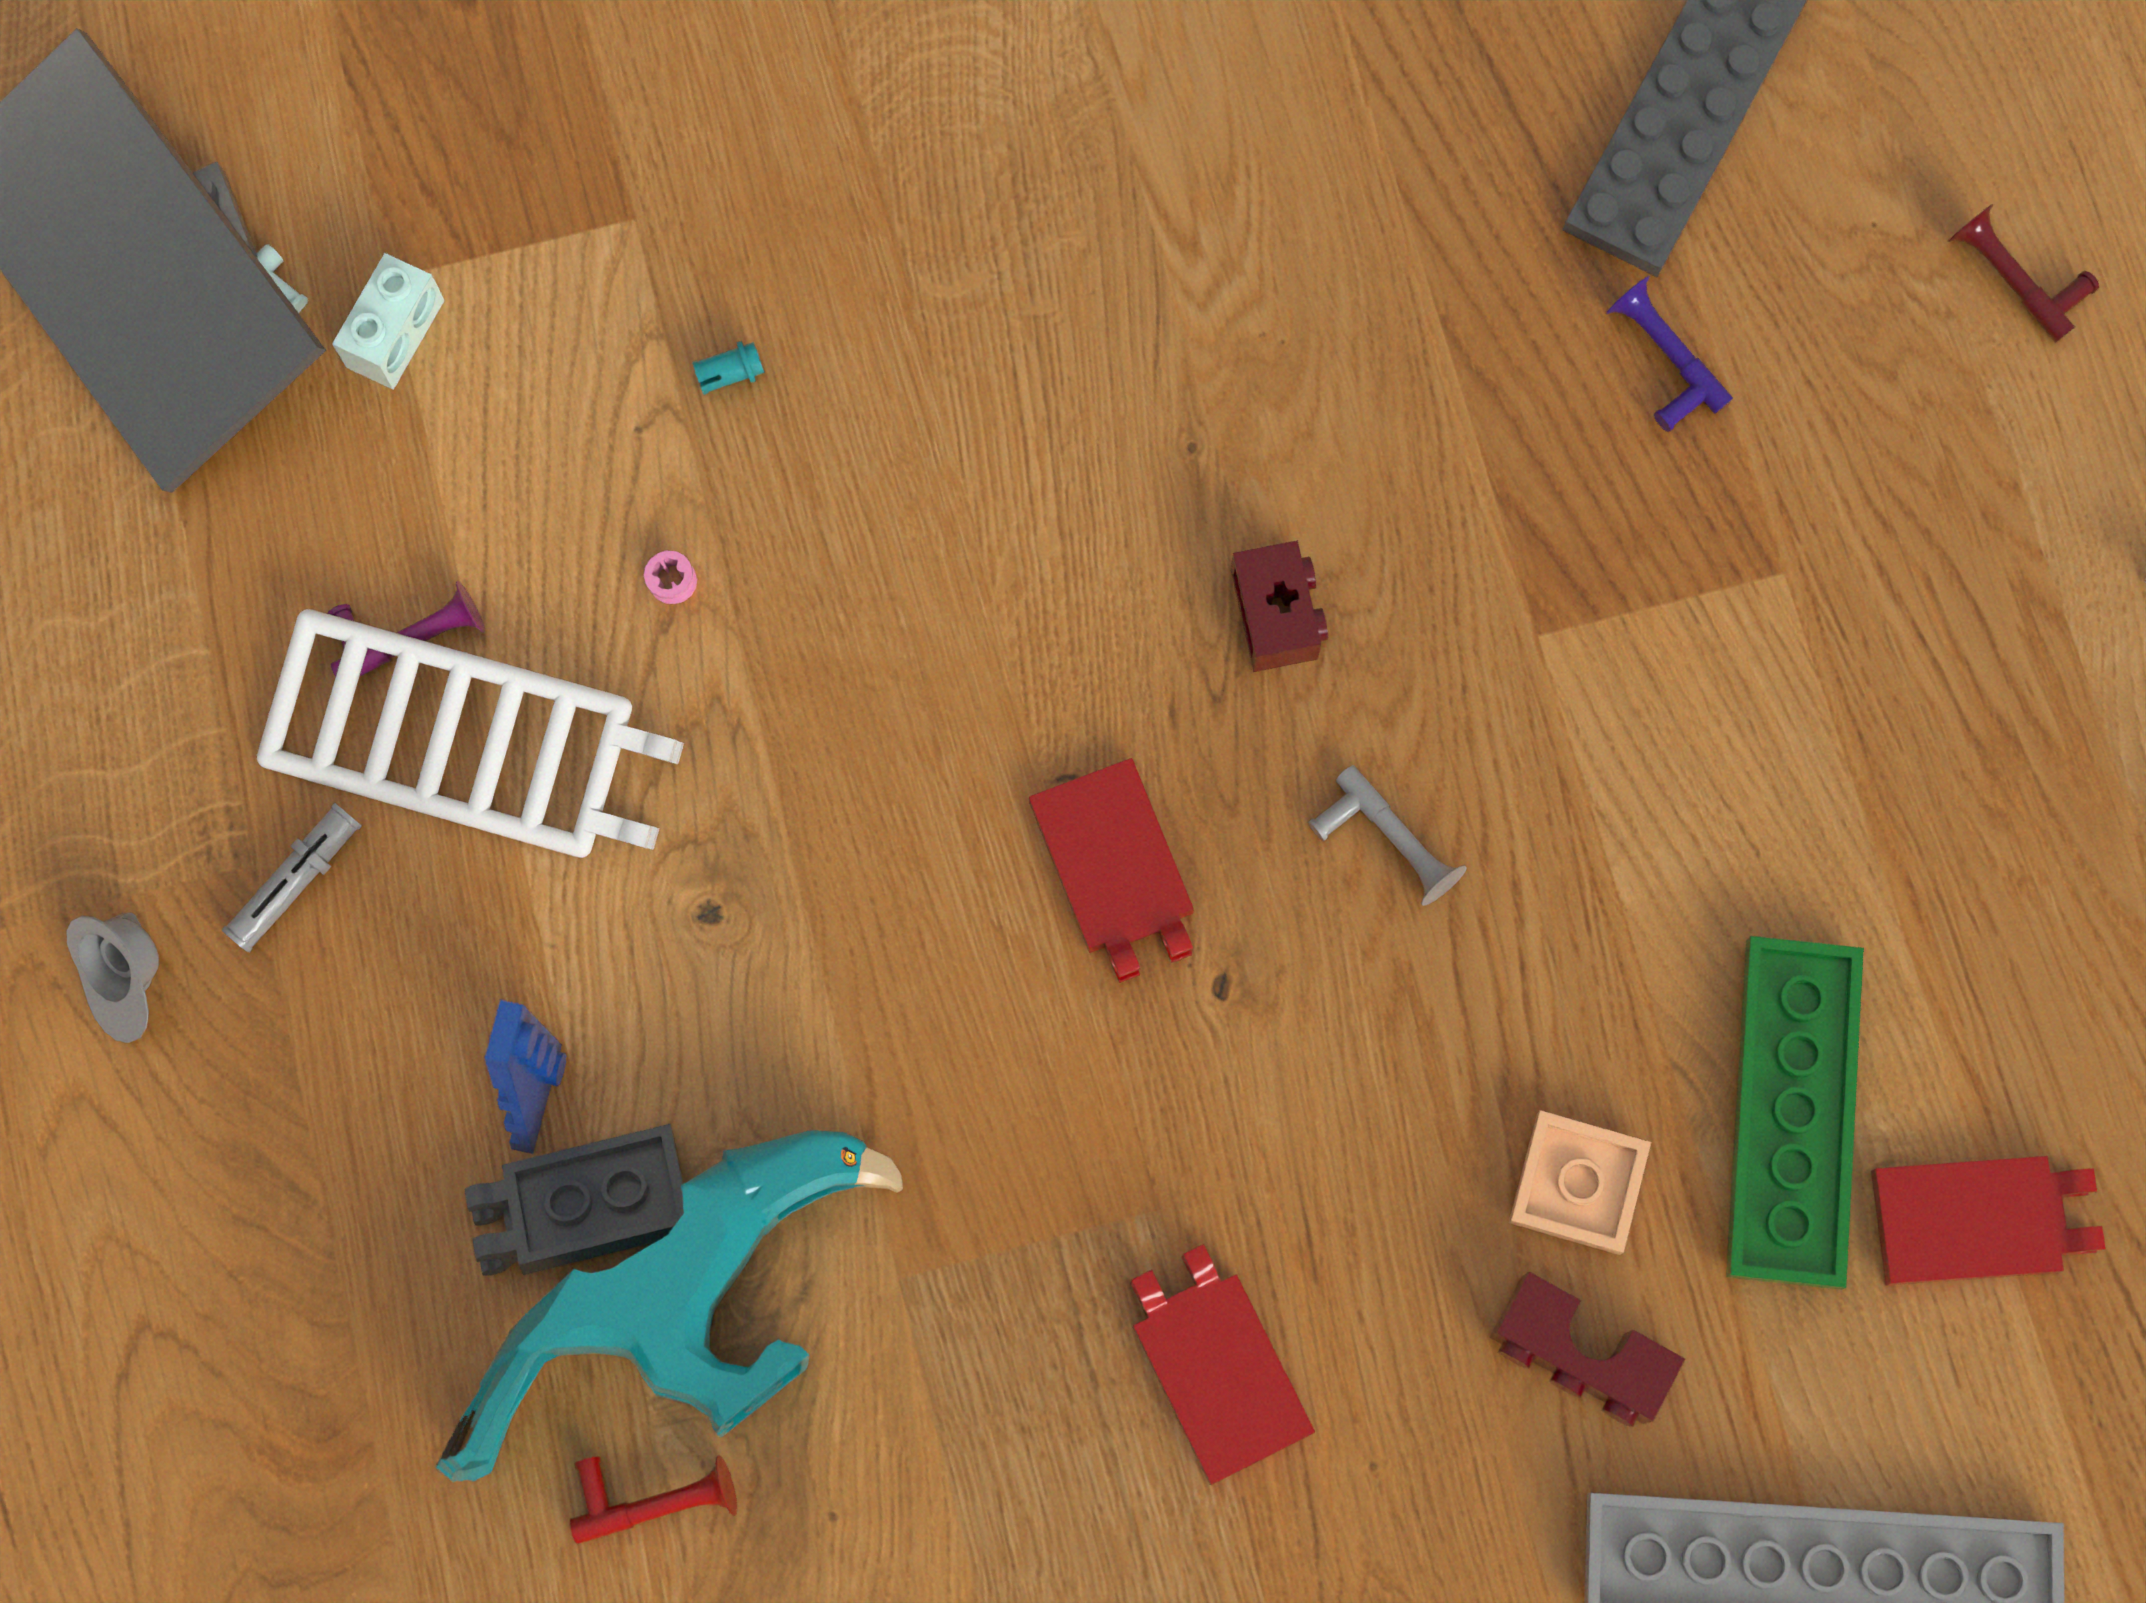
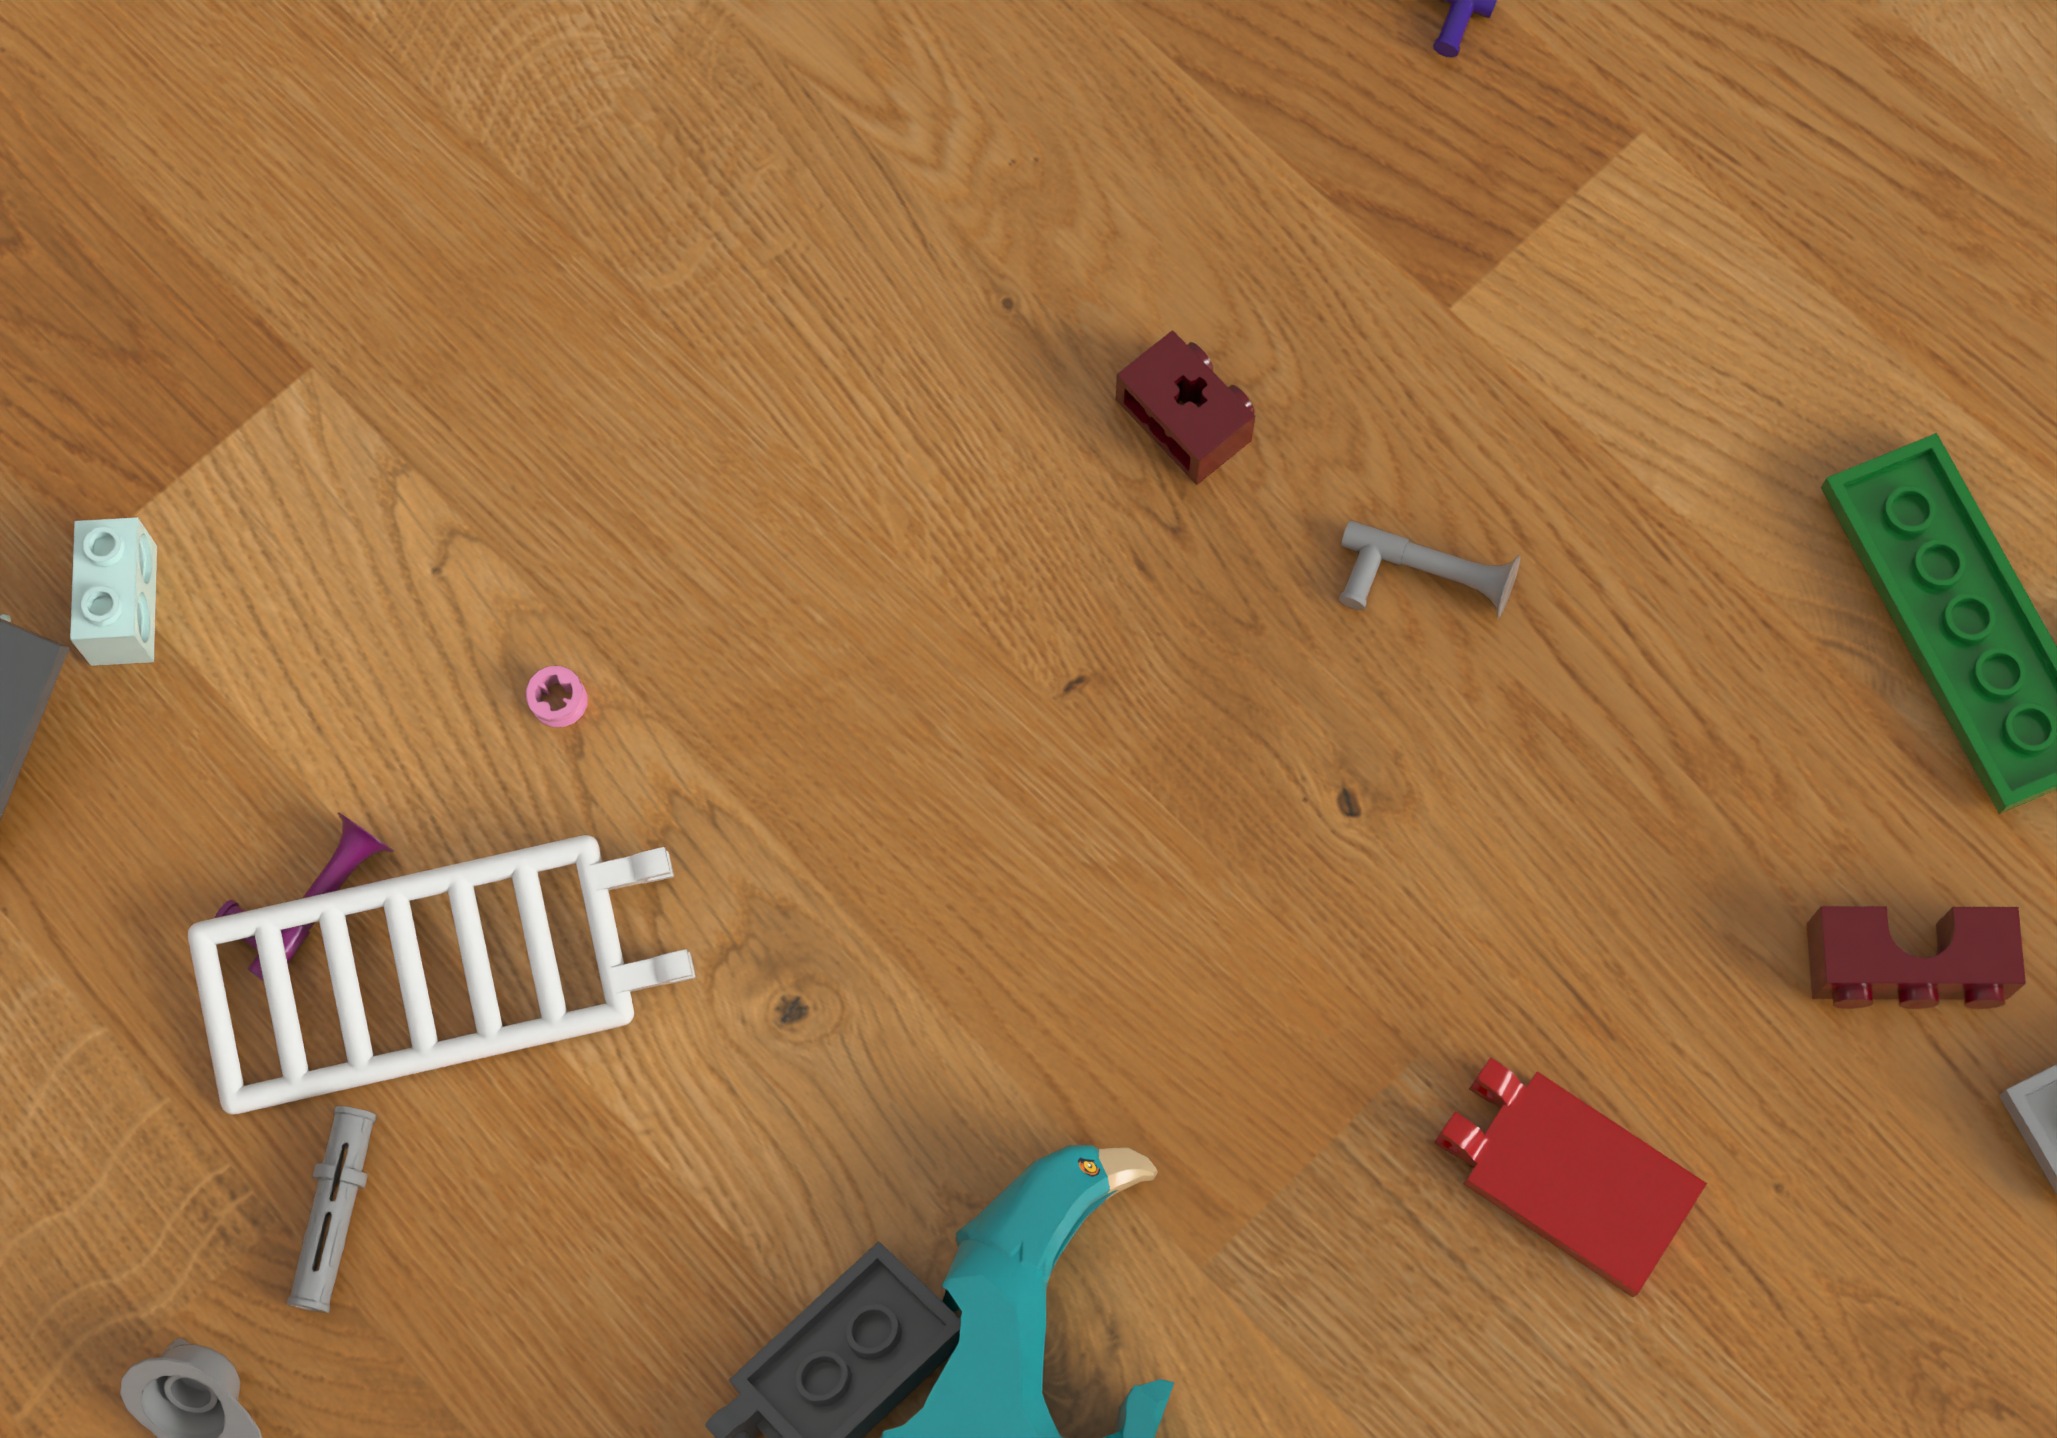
camera: 30 degrees left, 5 degrees down
(523, 1066) = (708, 1257): blue wing -> none
(728, 367) = (497, 459): teal pin -> none
(1114, 864) = (1176, 741): red tile -> none
(1580, 1182) = (1810, 799): light nougat plate -> none

